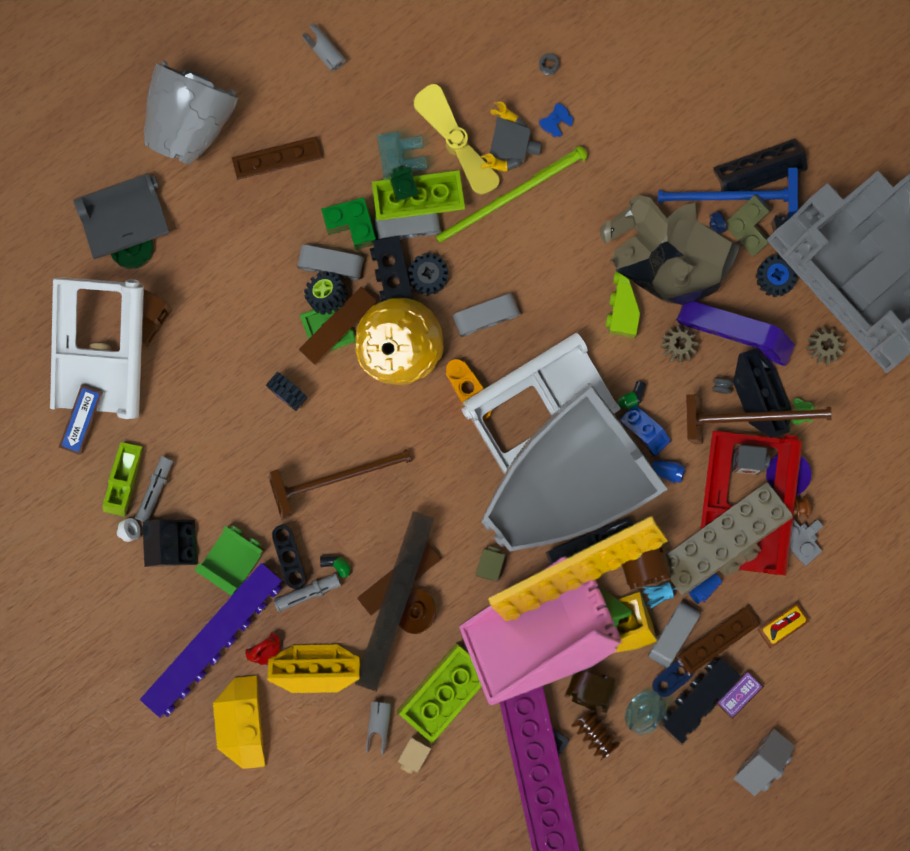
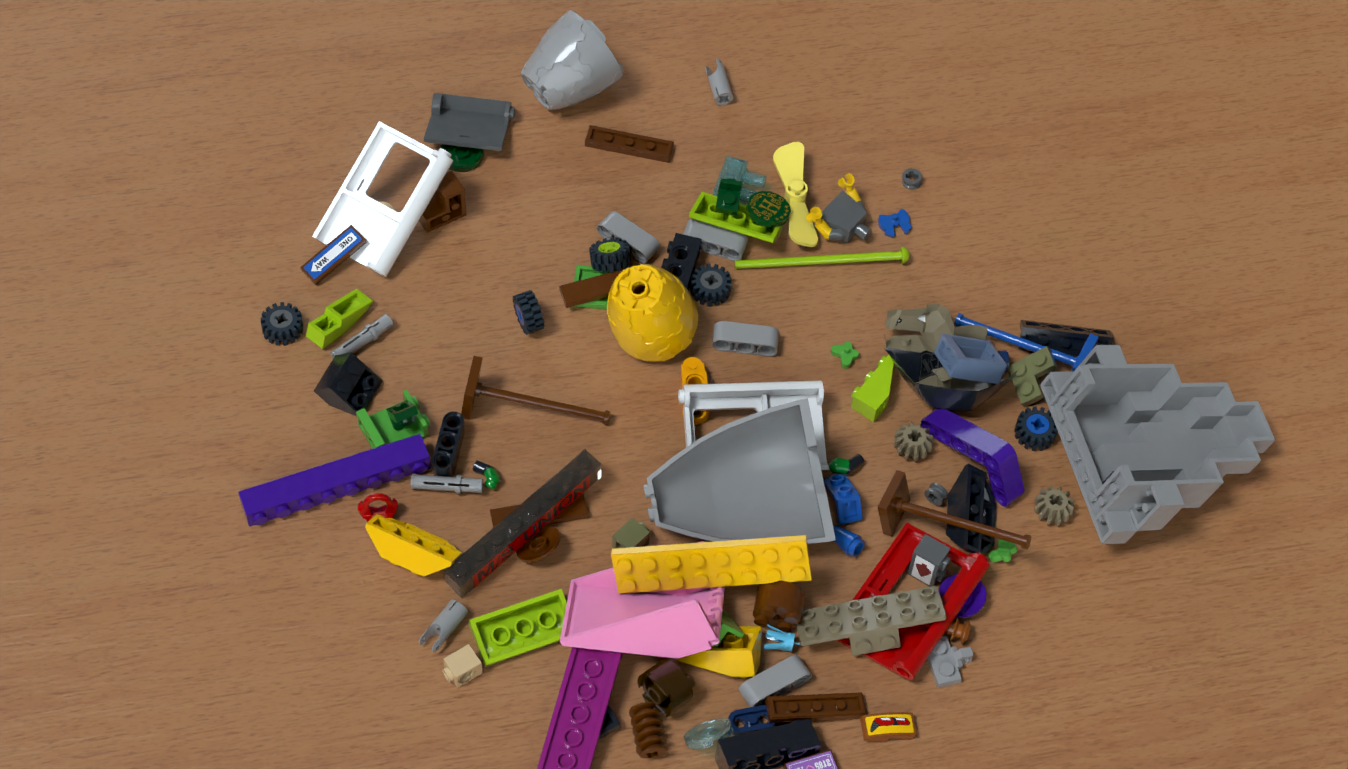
camera: 25 degrees right, 25 degrees down
(83, 512) = (290, 325): none -> black wheel
(128, 530) = (318, 358): white tile -> none
(234, 551) = (402, 414): none -> dark green bracket
(239, 723) = (316, 563): yellow wedge -> none
(353, 217) = (664, 209): green brick -> none
(443, 174) = (768, 209): none -> dark green tile
(578, 282) = (846, 354): none -> bright green piece
(681, 255) = (970, 358): none -> sand blue window
(705, 589) = (826, 656): blue cone -> none

